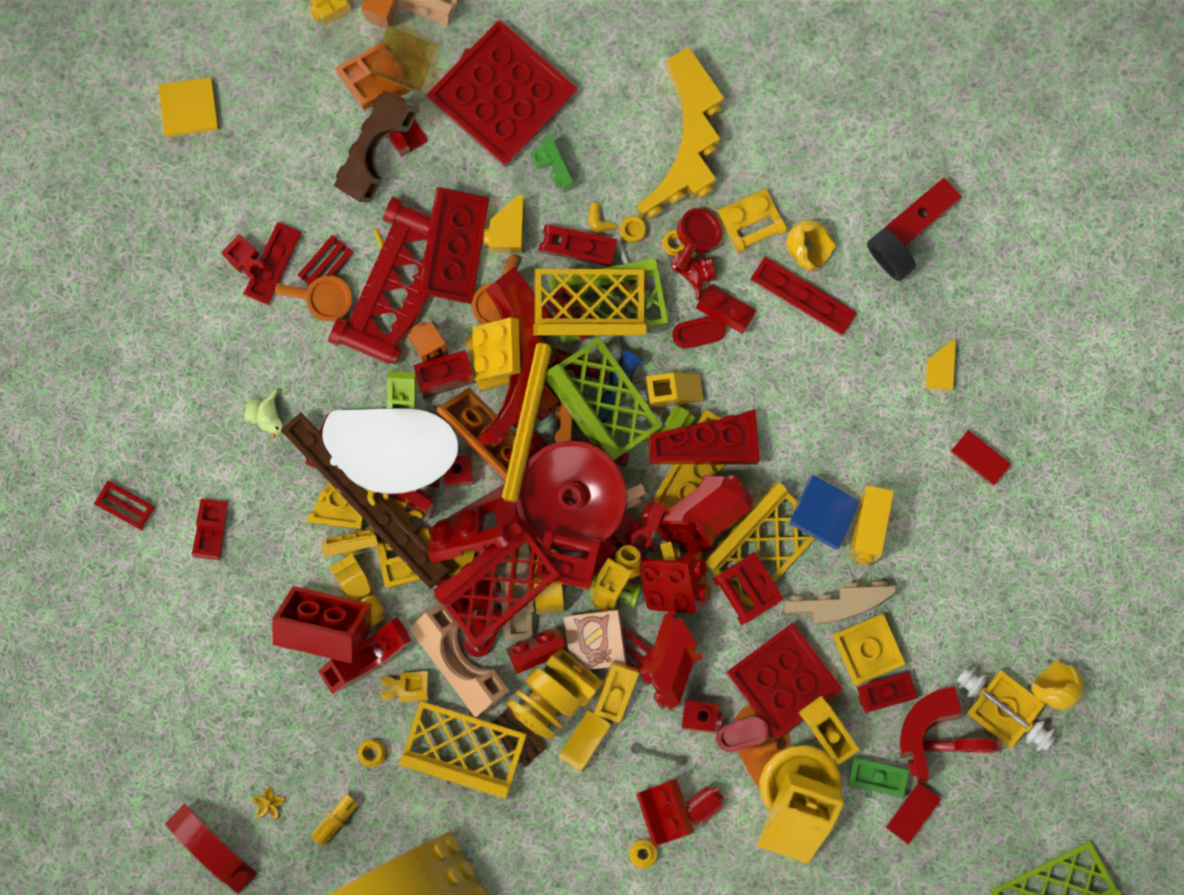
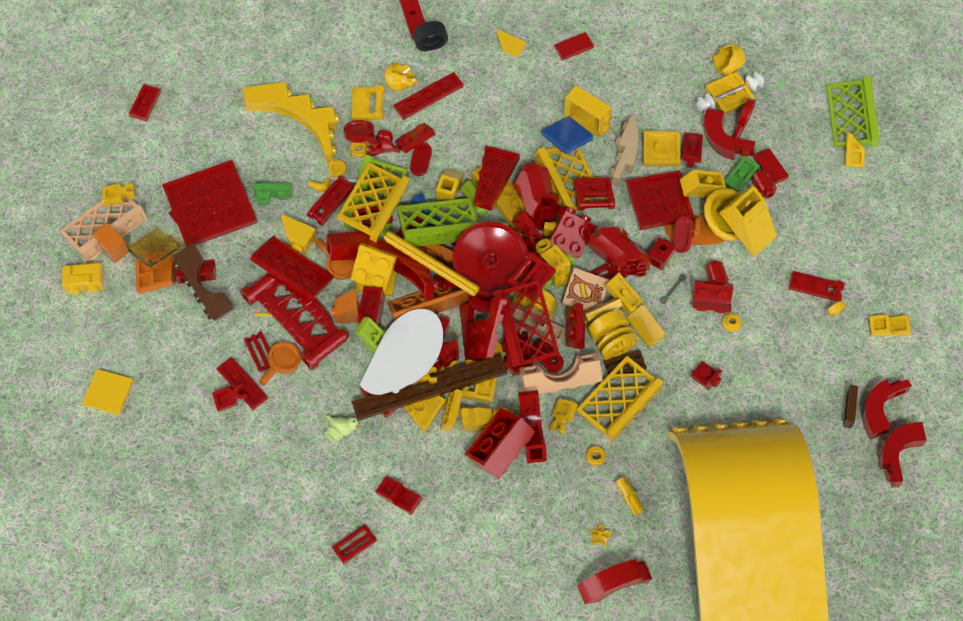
camera: 65 degrees left, 15 degrees down
(548, 851) = (706, 376): none -> red bracket
(876, 815) = (764, 184): none -> red brick

